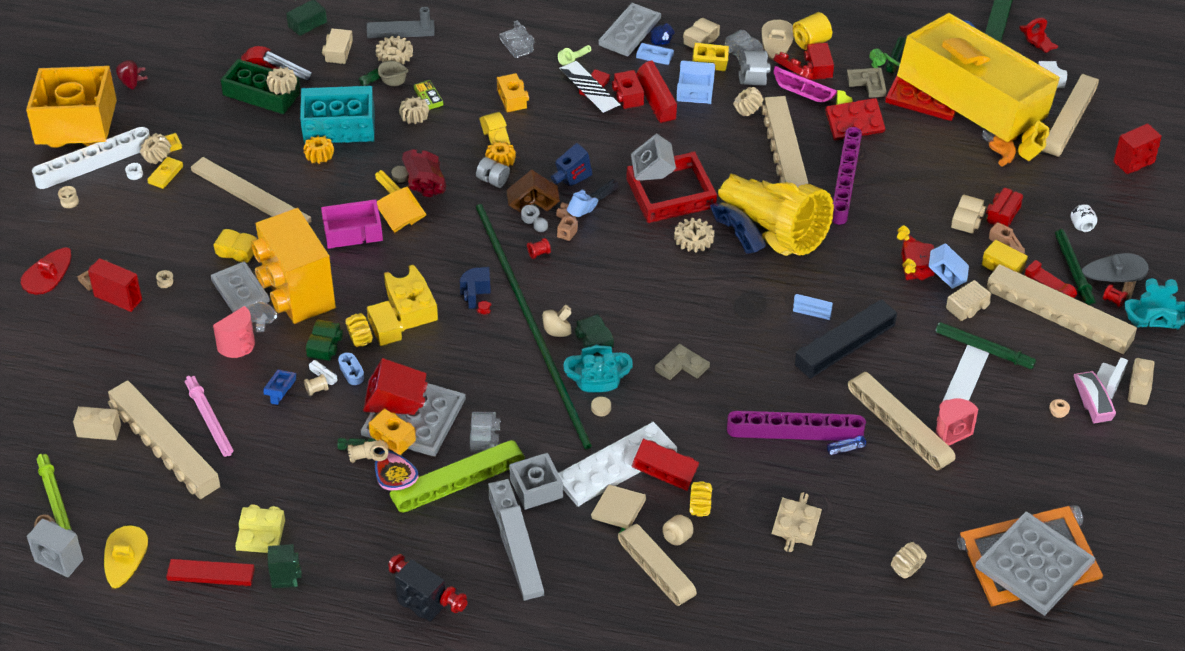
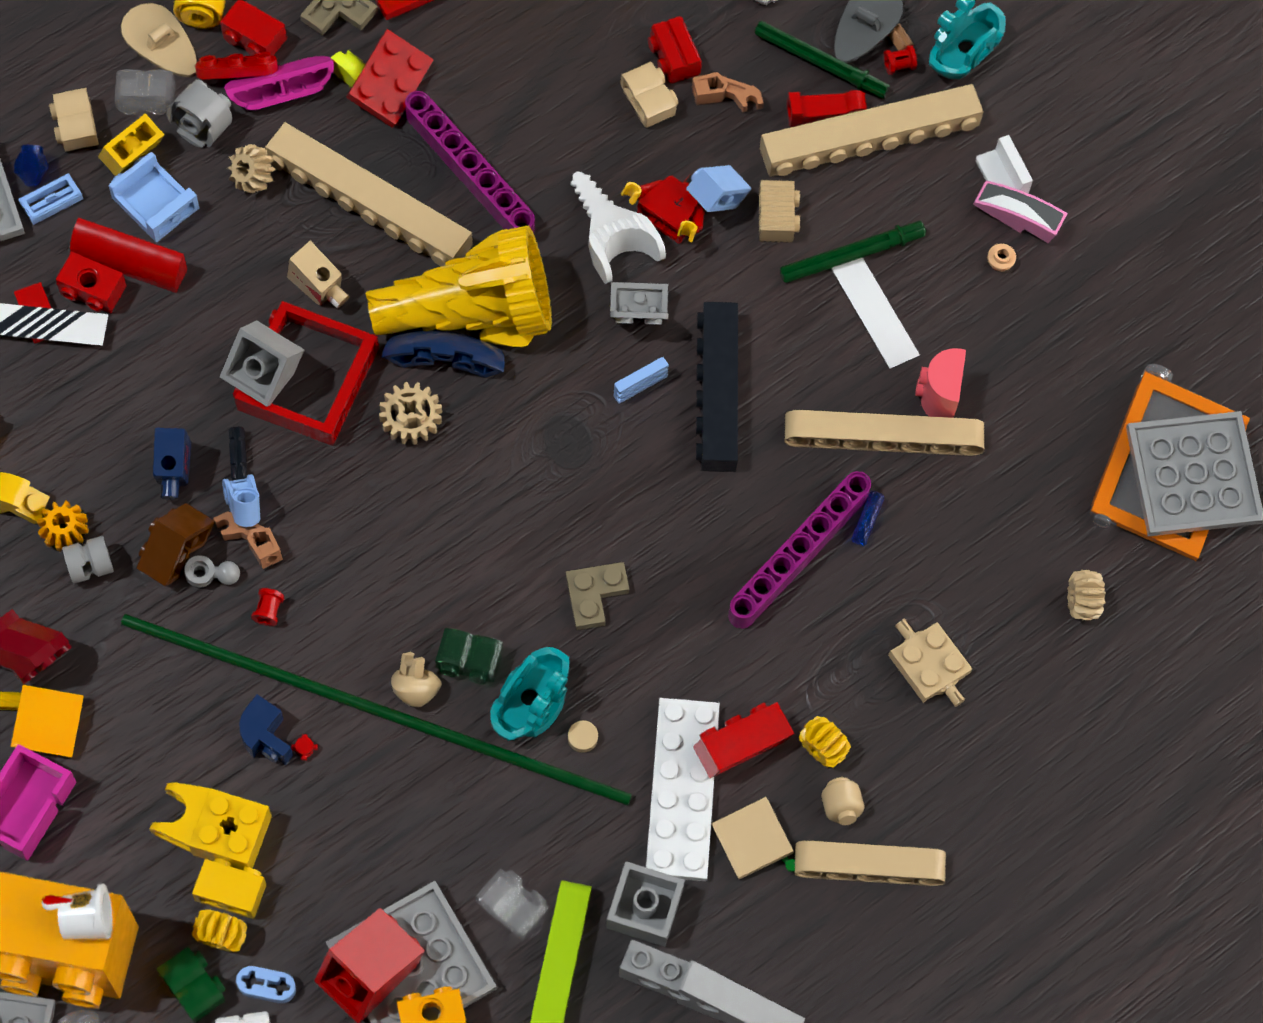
camera: 55 degrees left, 20 degrees up
(304, 242) = (83, 914): none -> white hat
(722, 161) = (316, 276): none -> tan torso
(852, 278) = (639, 301): none -> light grey bracket
(876, 245) = (614, 228): none -> white animal
(1004, 255) = (748, 120): yellow brick -> none
(1141, 381) = (1040, 146): tan brick -> none

